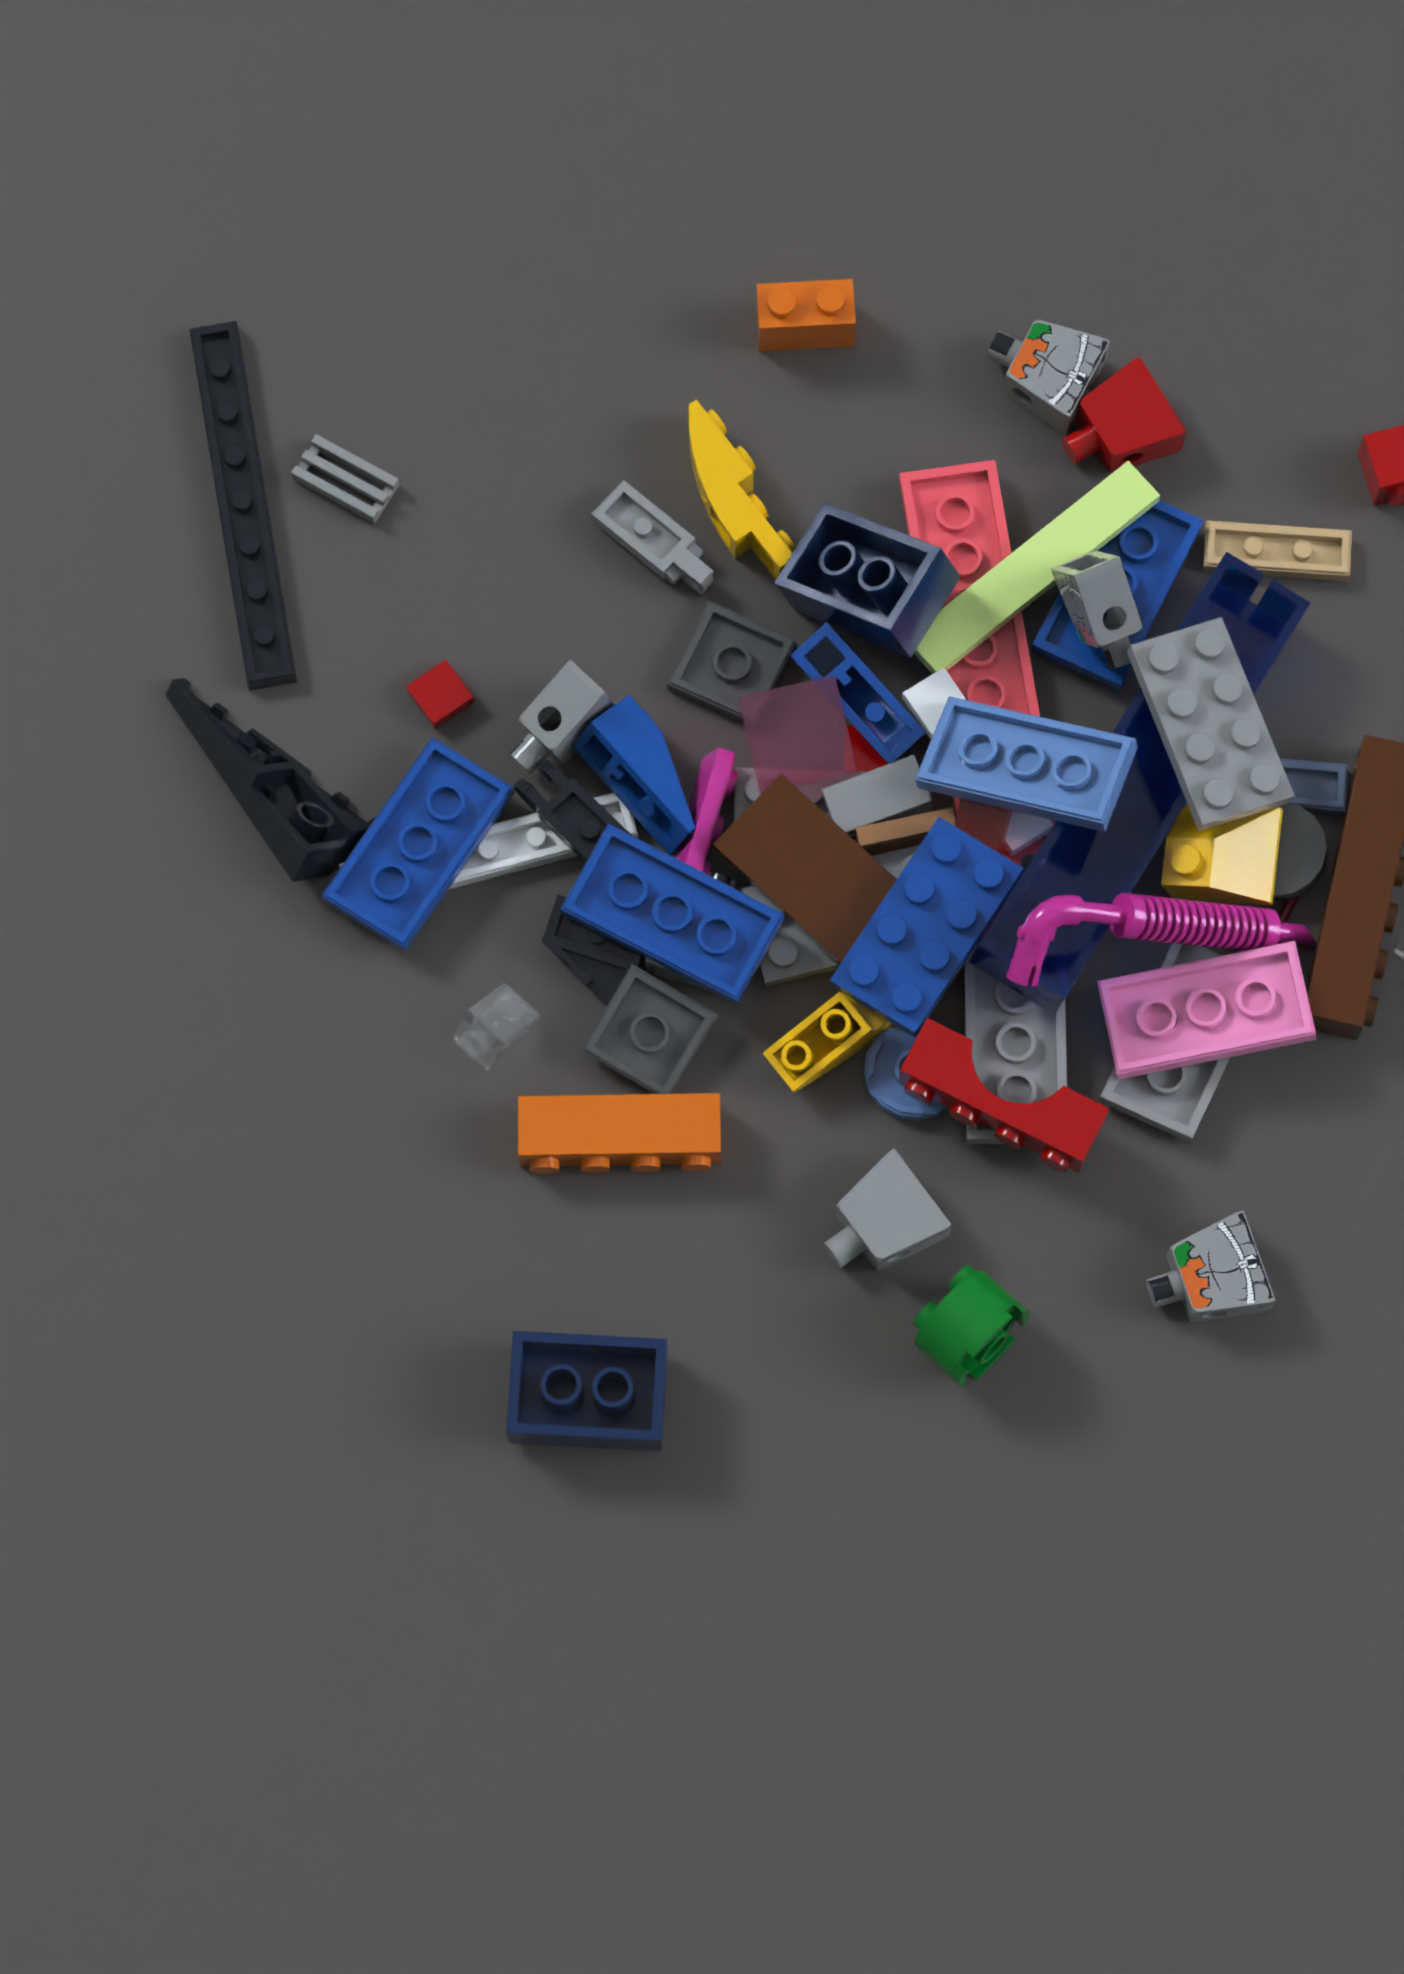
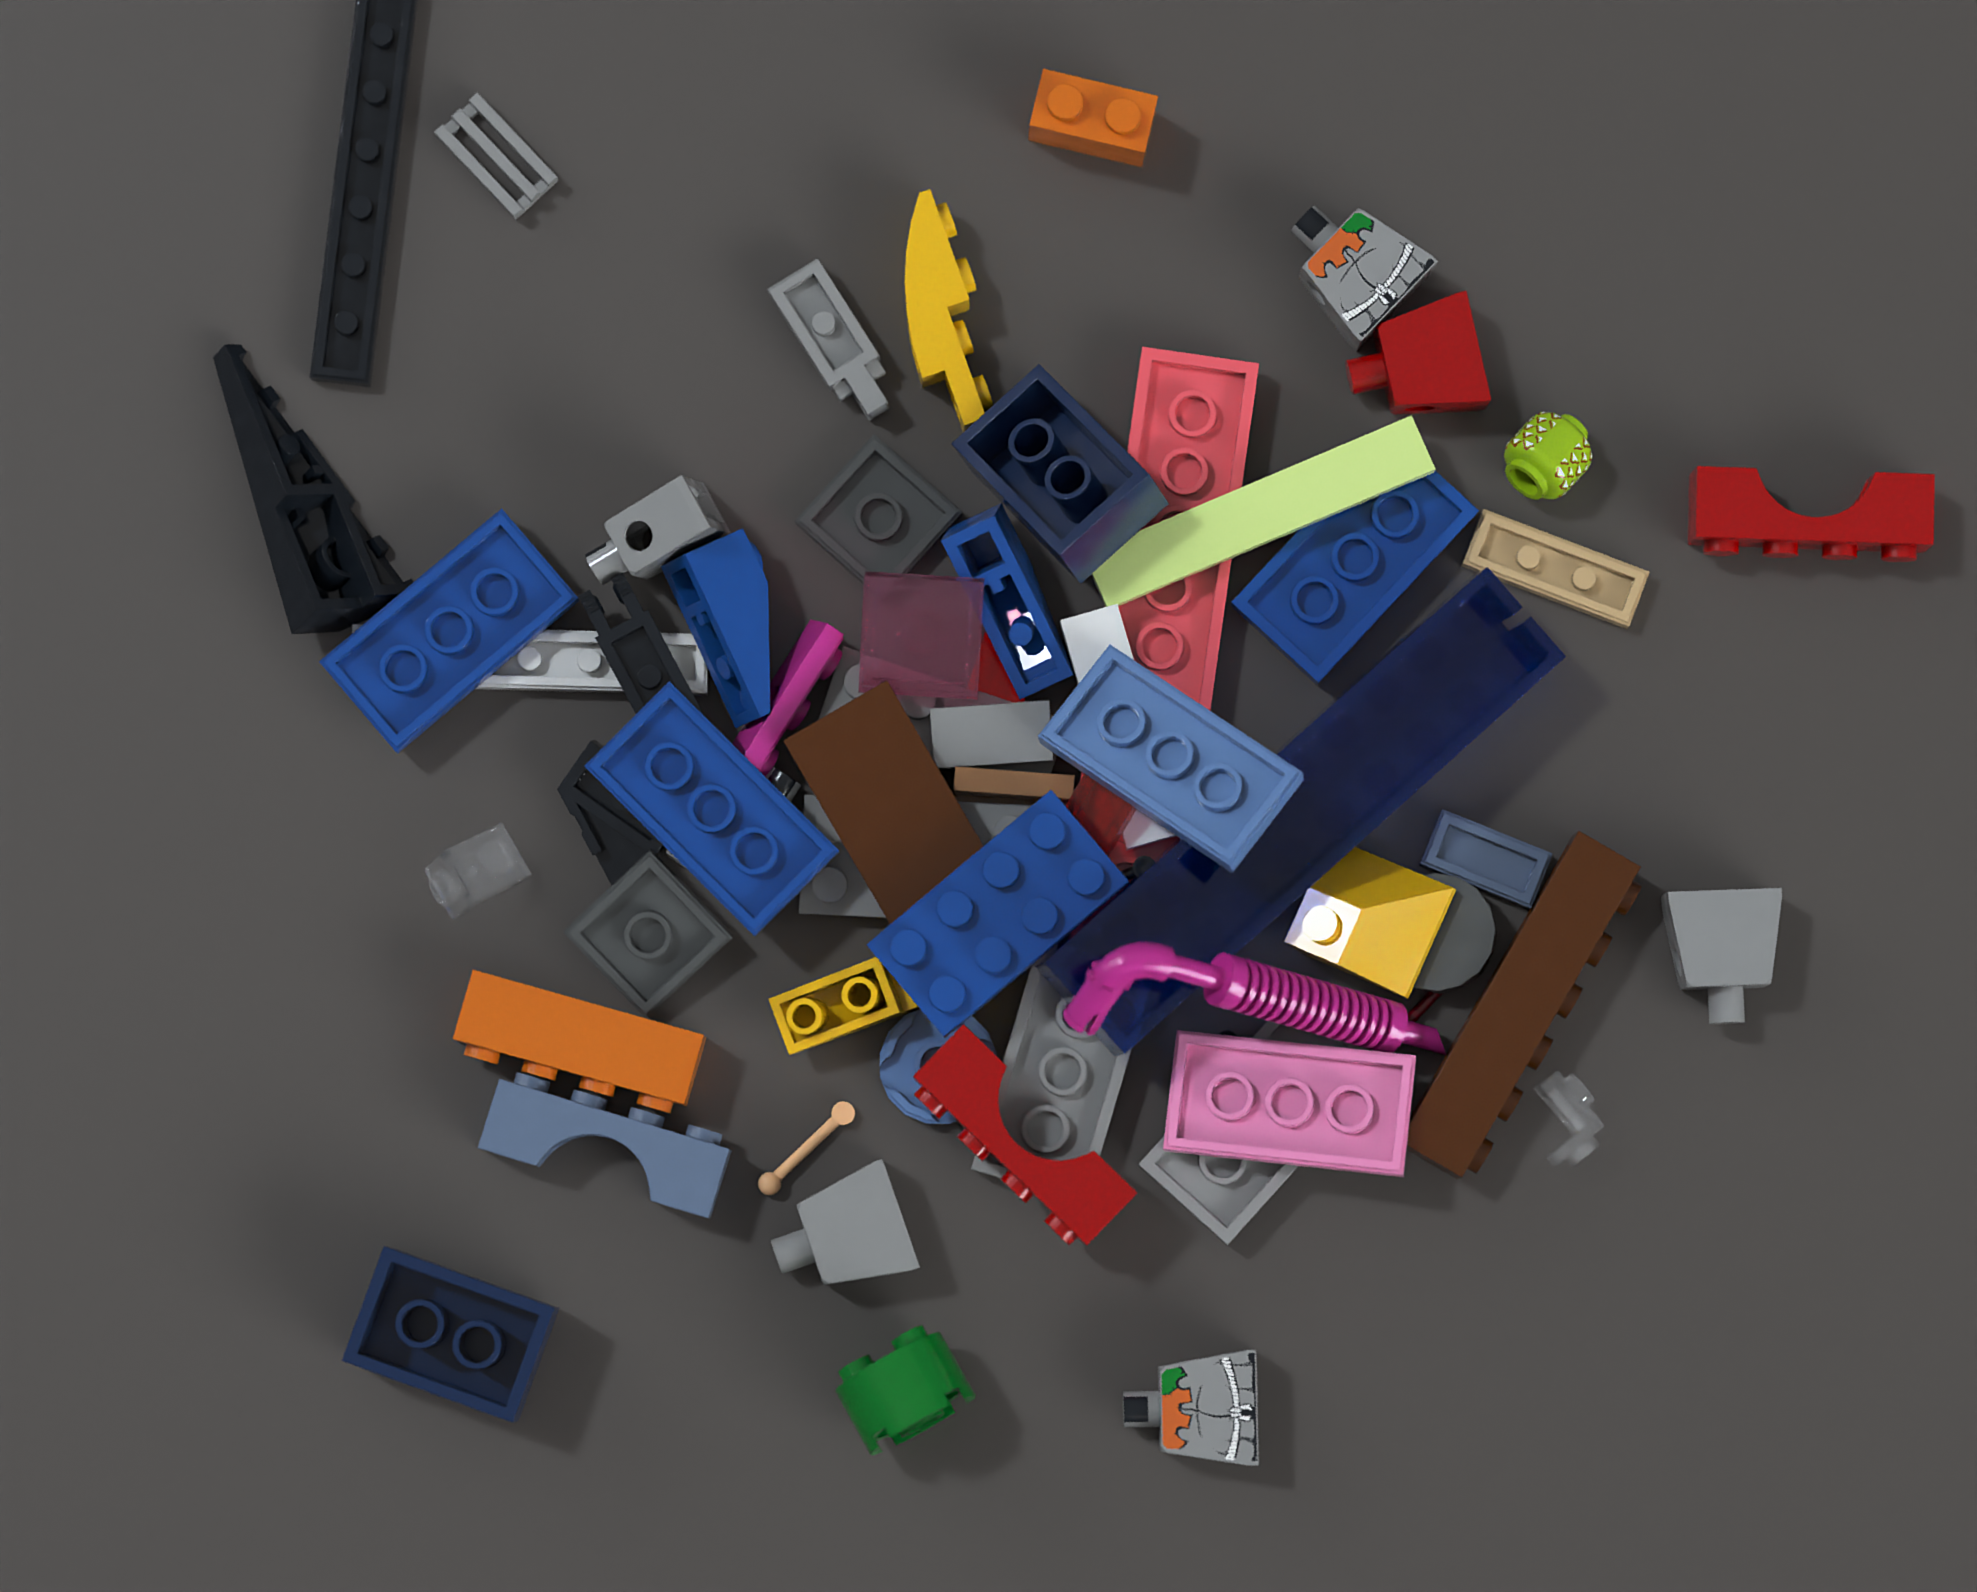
camera: 10 degrees right, 10 degrees up
(440, 694) = (529, 453): red tile -> none
(604, 1205) = (532, 1124): none -> sand blue arch
(848, 1133) = (841, 1114): none -> light nougat hinge
(1089, 589) = (1319, 586): light grey torso -> none
(1210, 724) = (1398, 774): light grey plate -> none
(1243, 465) = (1547, 455): none -> lime head

